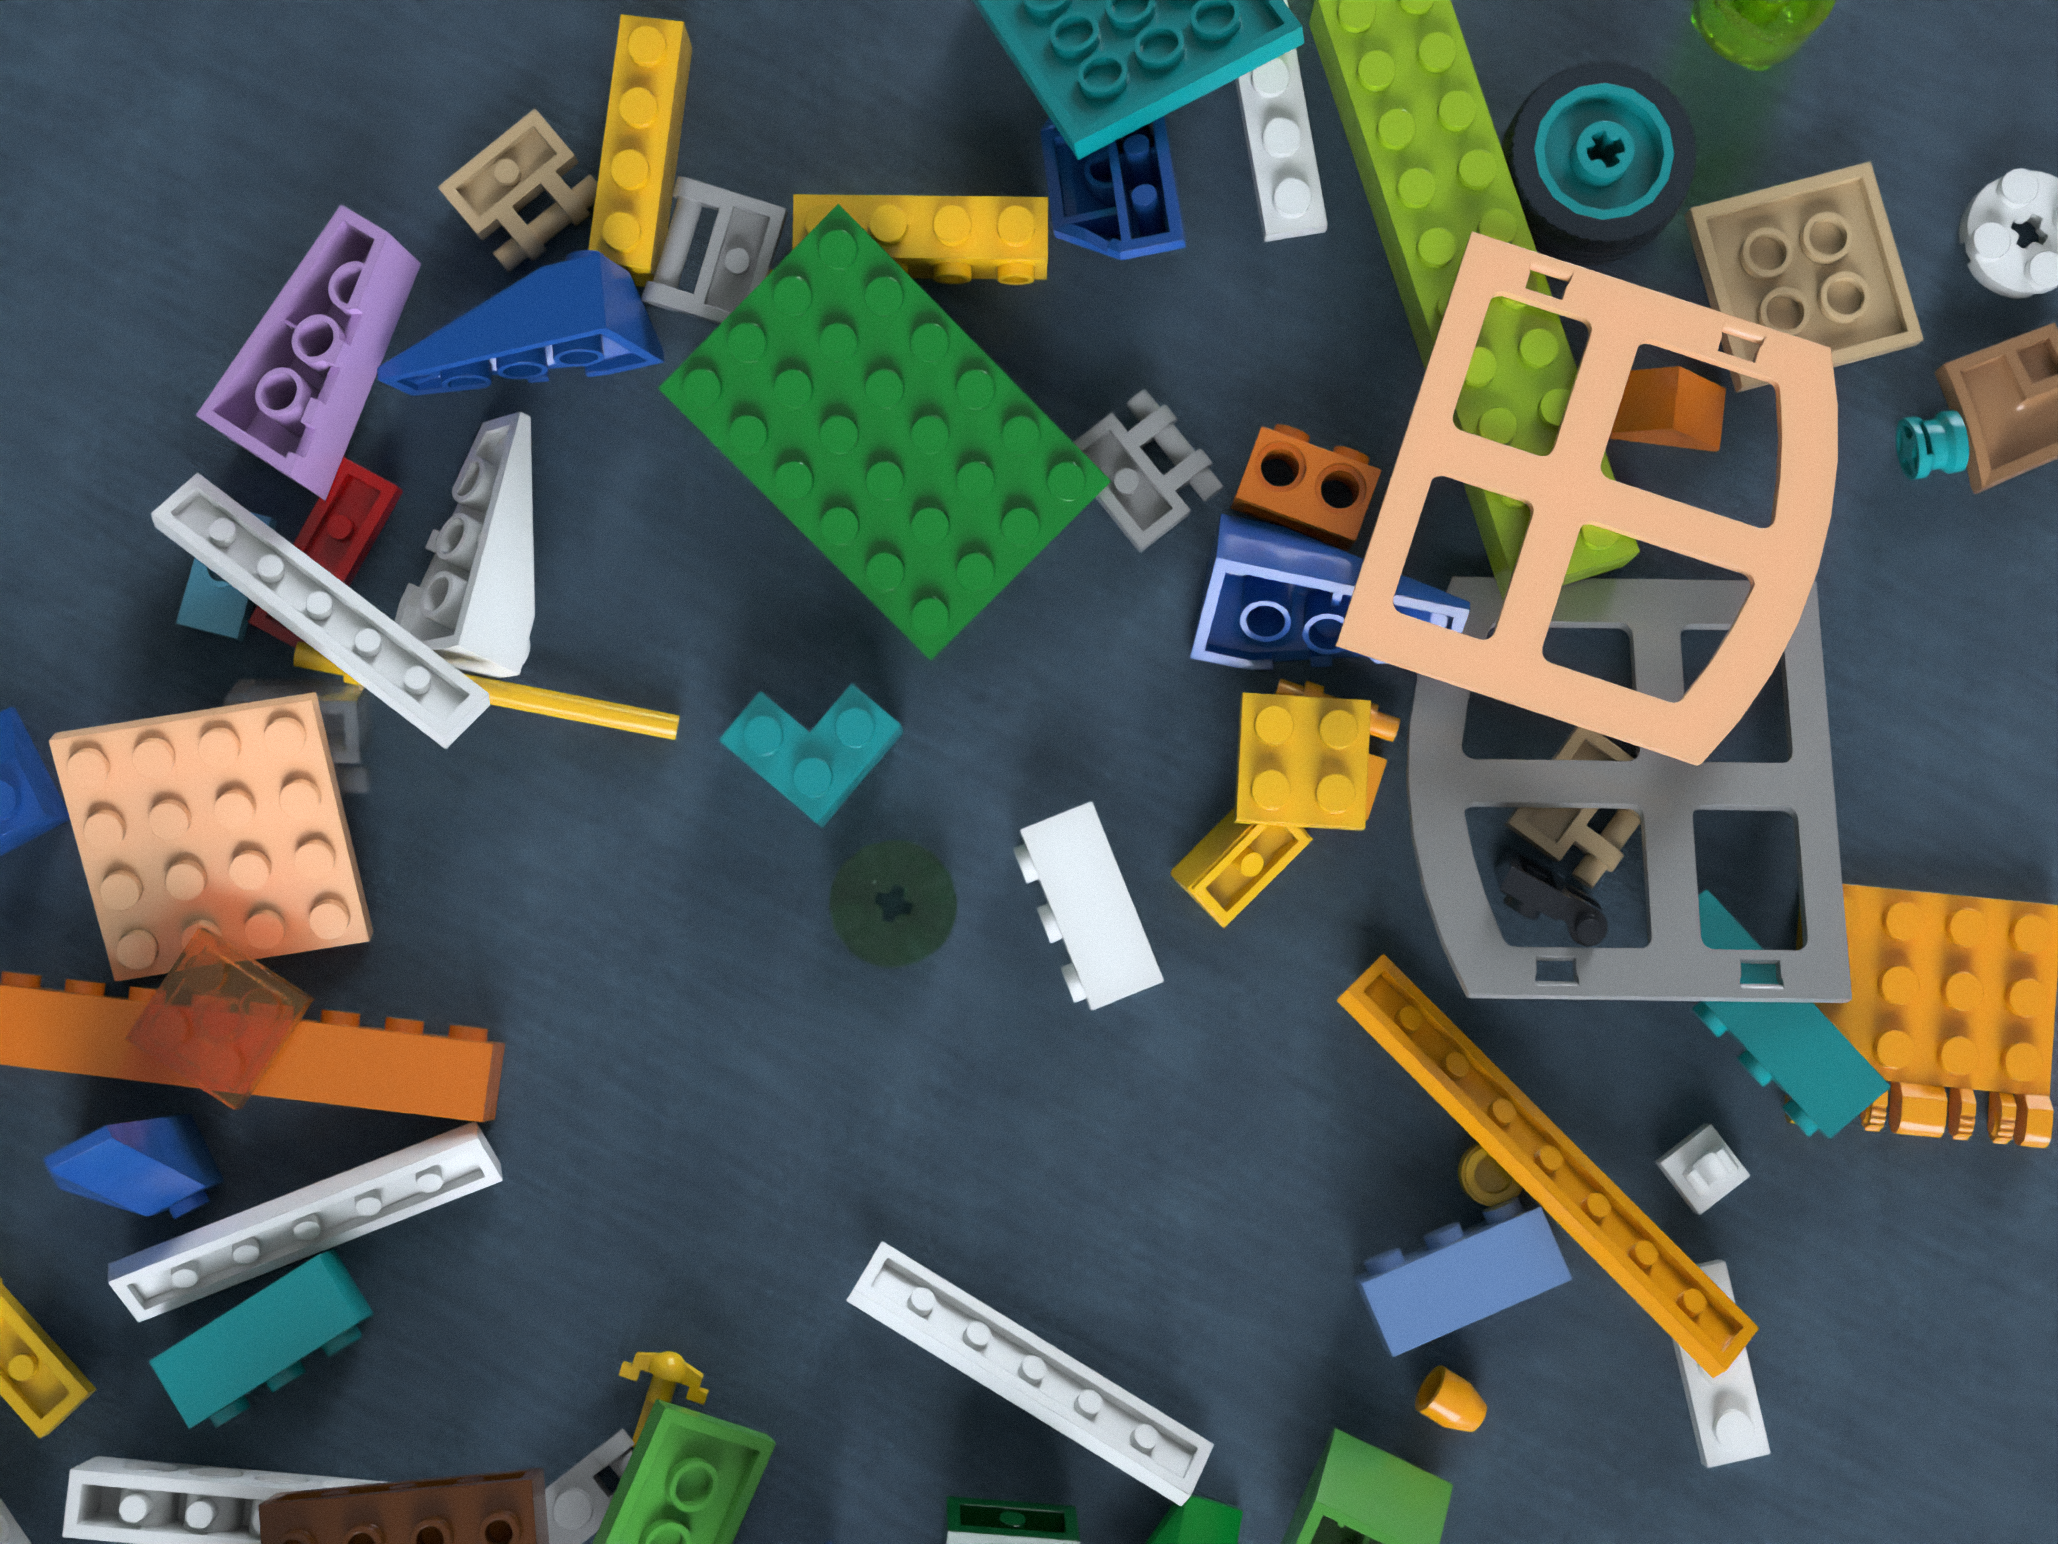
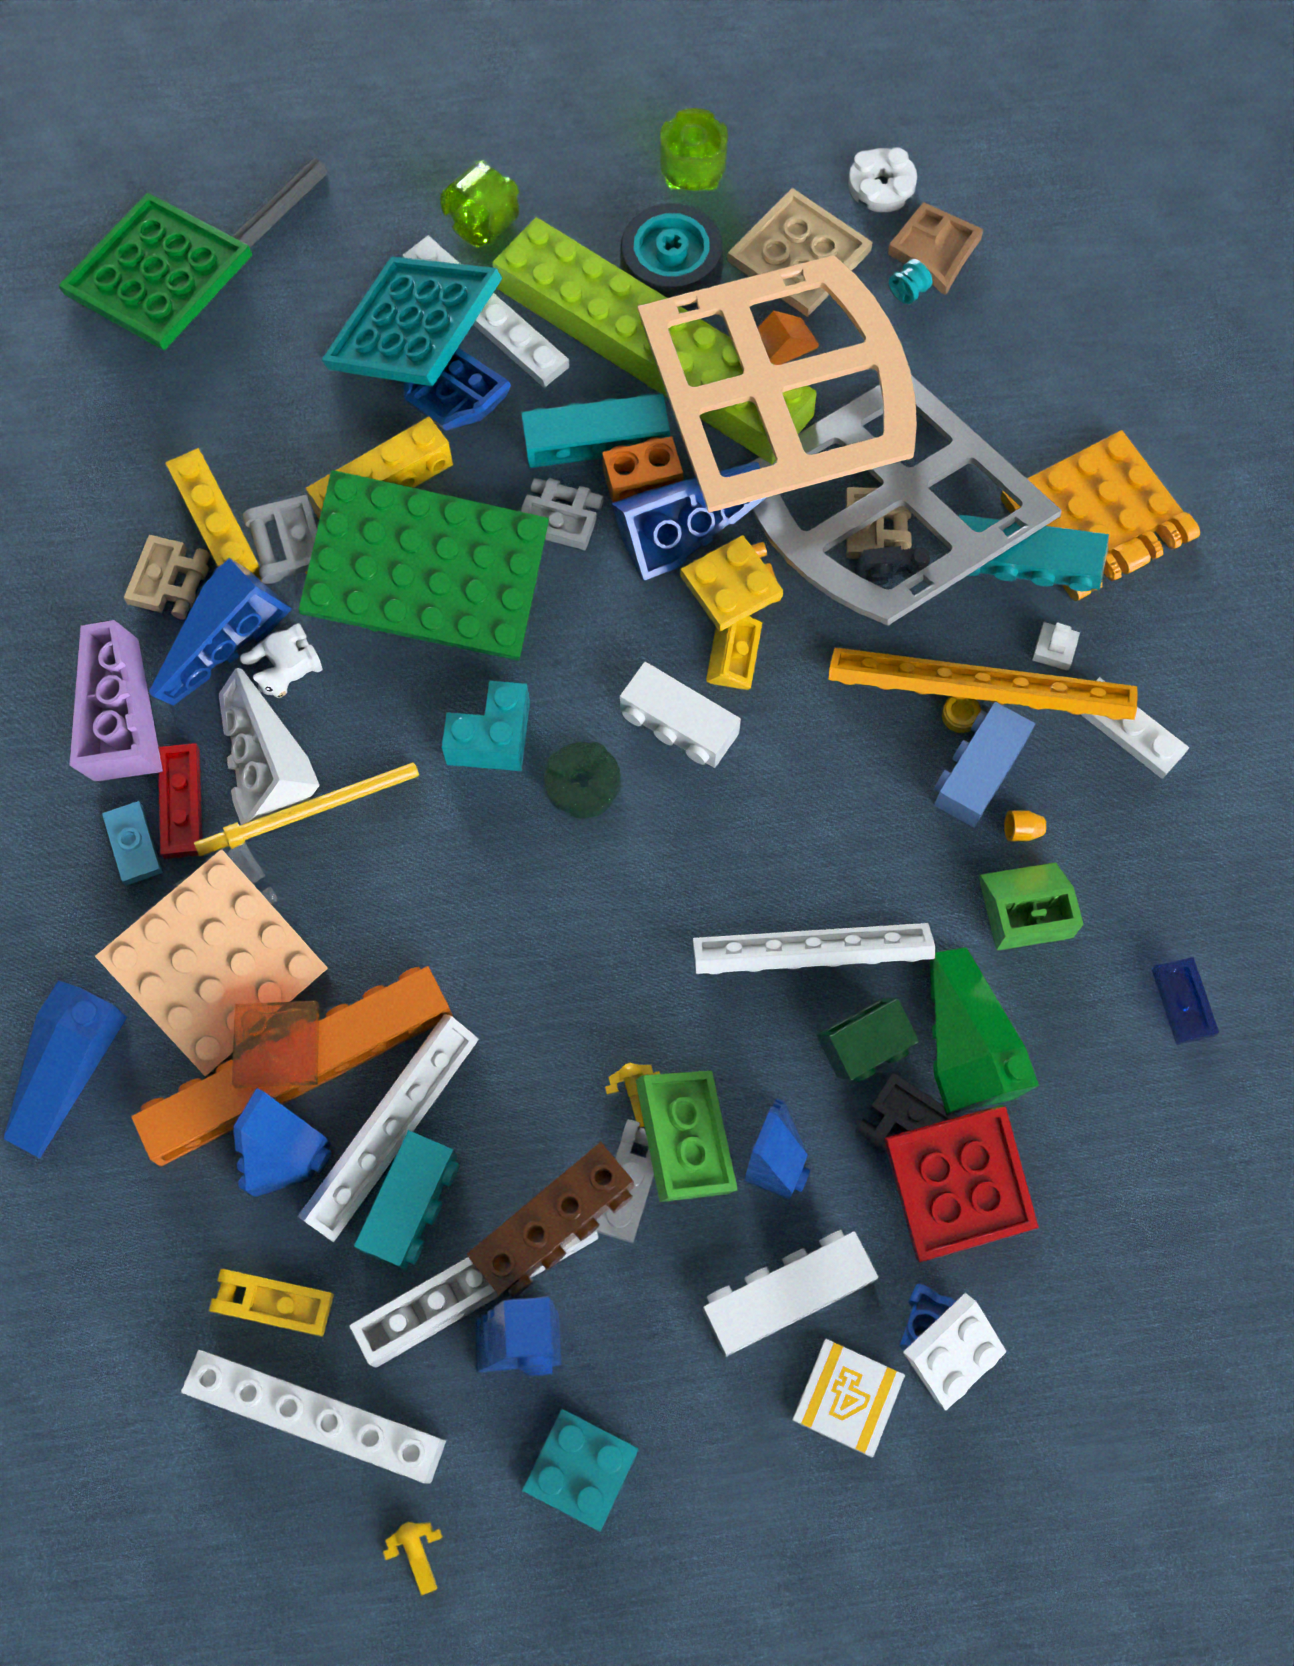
camera: 30 degrees left, 15 degrees down
(321, 610) = (196, 815): white plate -> none
(604, 446) = (287, 659): none -> white animal
(1283, 371) = (588, 429): none -> teal brick

